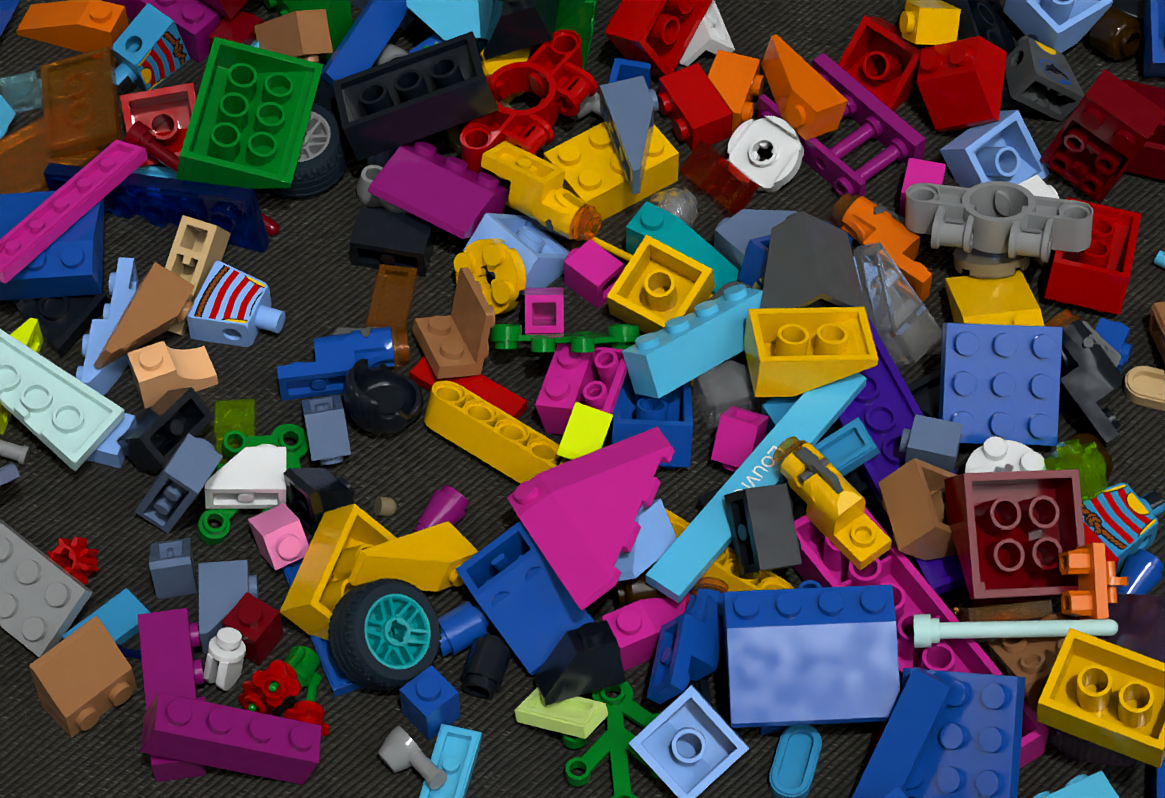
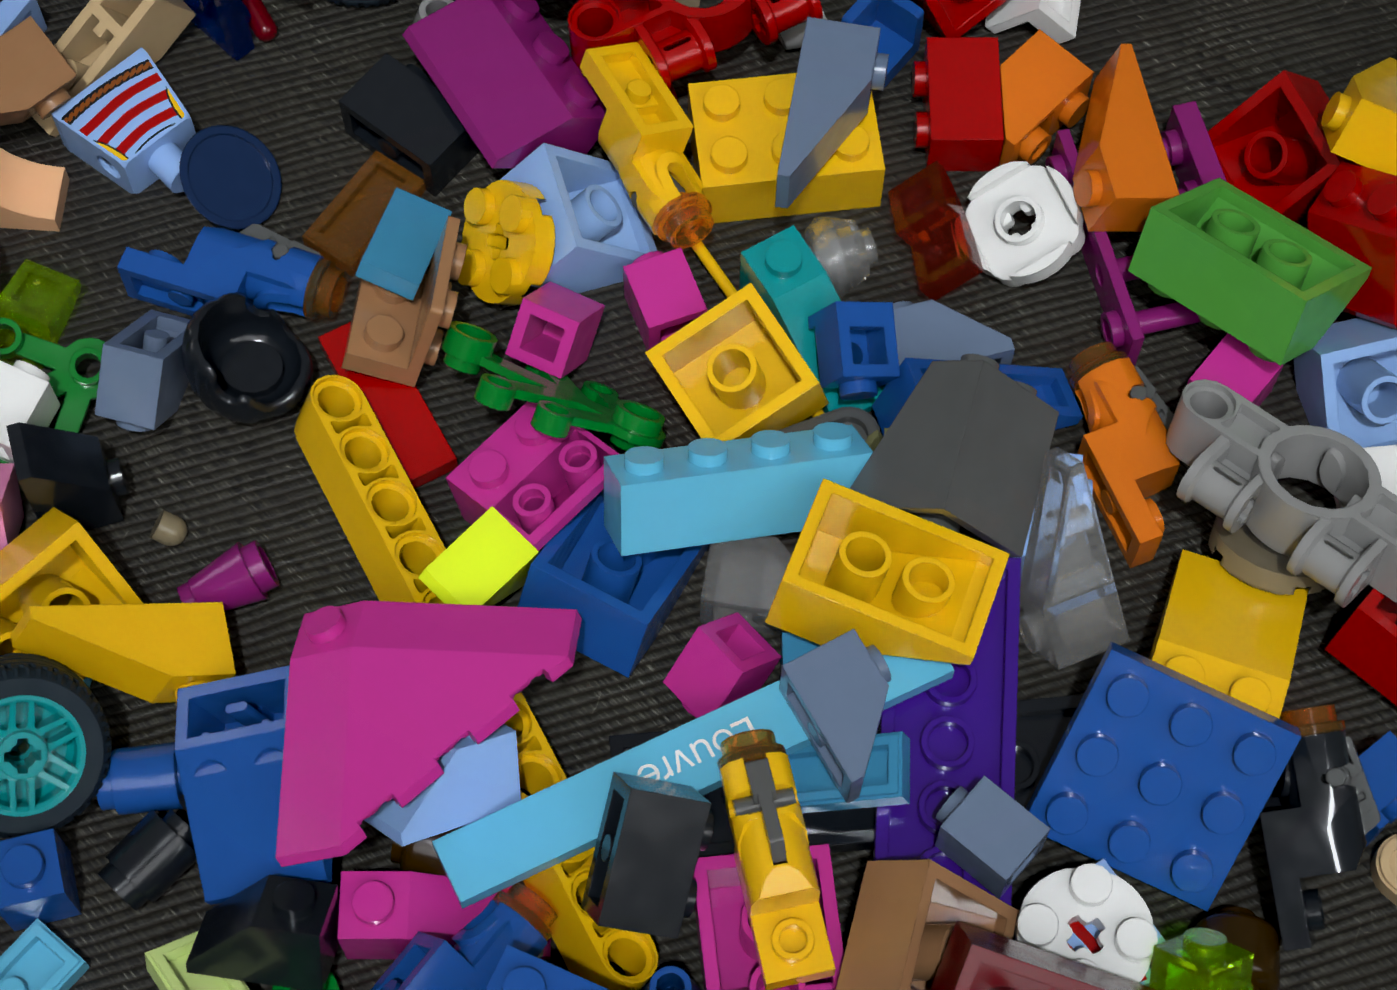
camera: 25 degrees right, 10 degrees up
(306, 310) = (230, 177): none -> dark blue piece
(433, 301) = (403, 244): none -> dark azure tile
(718, 246) = (856, 347): none -> blue brick
(822, 415) = (839, 704): none -> sand blue slope
(902, 123) = (1246, 269): none -> bright green slope

